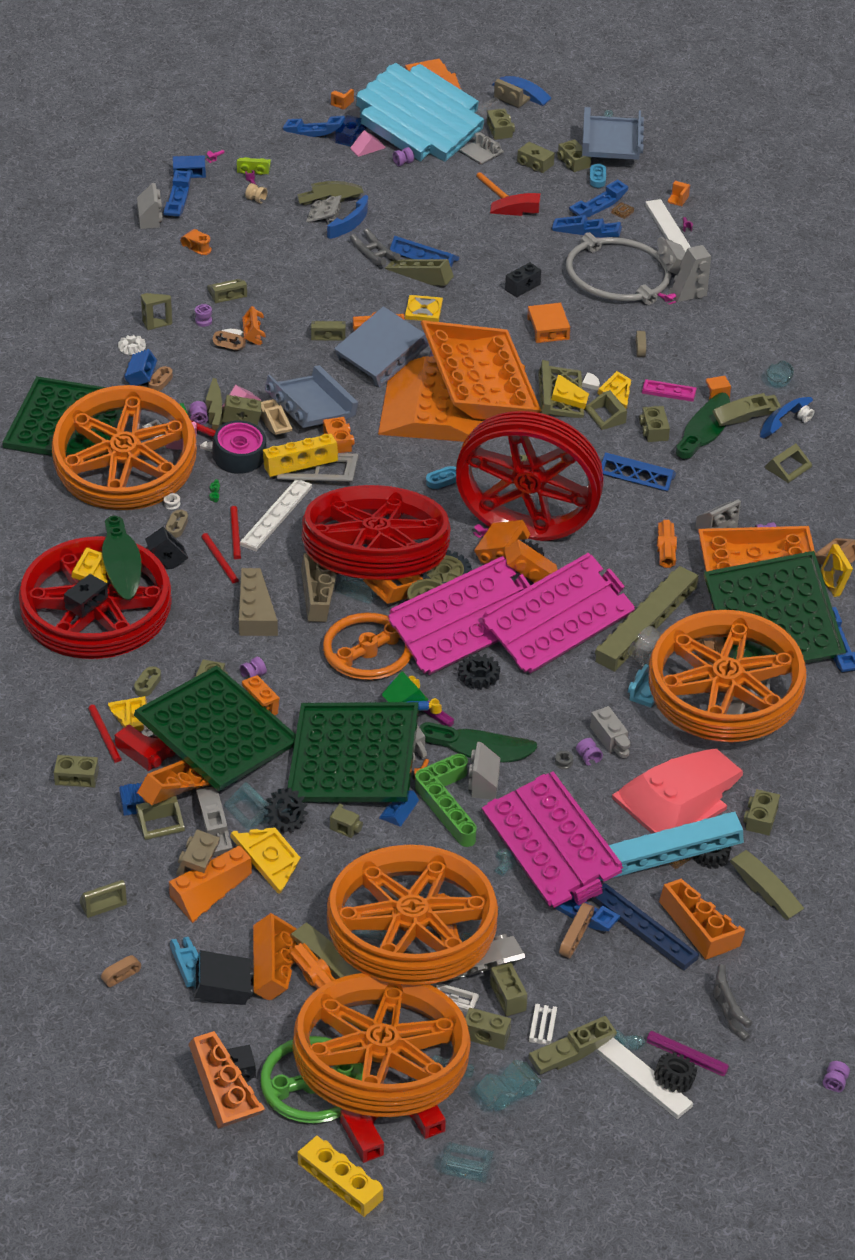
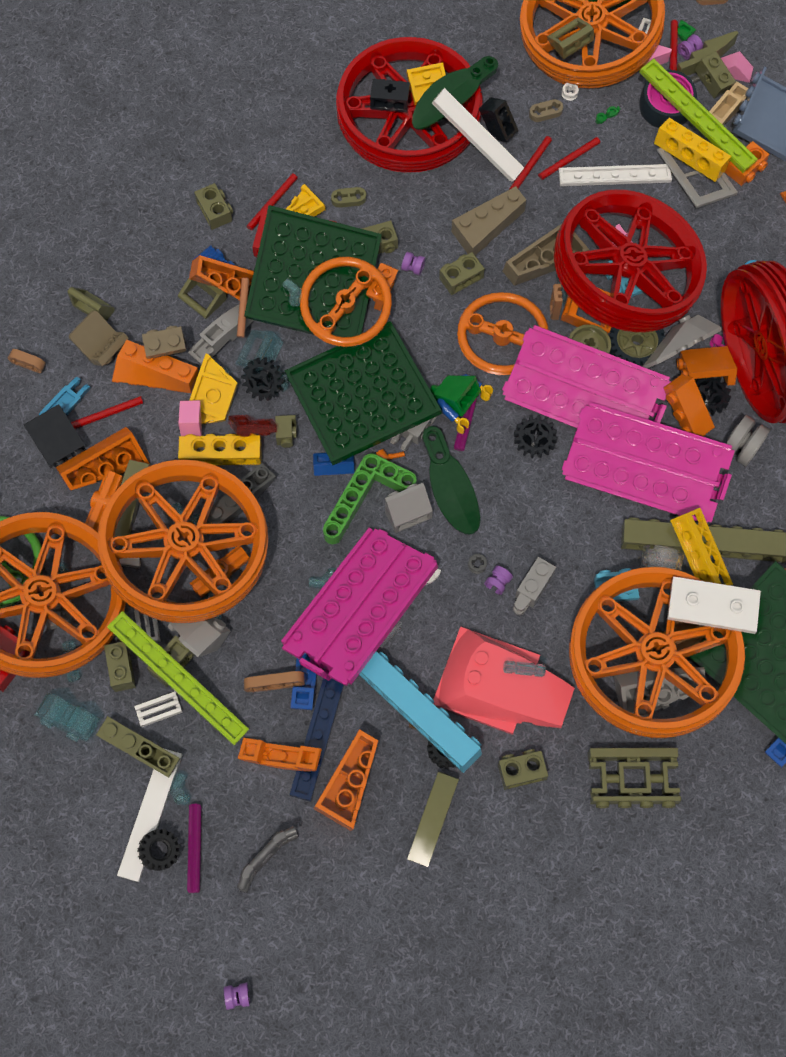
camera: 60 degrees right, 25 degrees up
(138, 474) = (575, 41): none -> olive tile
(152, 909) = (97, 339): none -> dark tan bracket
(174, 564) = (477, 135): none -> white tile
(210, 785) = (242, 306): none -> nougat bar
(224, 930) = (107, 412): none -> red bar
(228, 742) = (294, 292): none -> clear light blue arm
(262, 717) = (351, 294): none -> orange piece
(273, 433) = (698, 115): none -> lime tile
(285, 876) = (190, 418): none -> bright pink slope
(289, 644) = (464, 276): none -> olive brick
(319, 880) = (229, 456): none -> yellow brick
(325, 839) = (245, 426): none -> clear red plate
(374, 597) = (556, 302): none -> medium nougat tile
(467, 539) = (682, 336): none -> light grey wedge
(531, 982) = (177, 678): none -> lime tile
(586, 542) = (748, 442): none -> light grey wheel
(648, 954) = (279, 756): none -> orange slope
(649, 615) = (697, 551): none -> yellow fence
(683, 760) = (524, 668): none -> clear light blue axle
(718, 615) = (714, 605): none -> white plate
(801, 740) = (635, 795): none -> olive fence

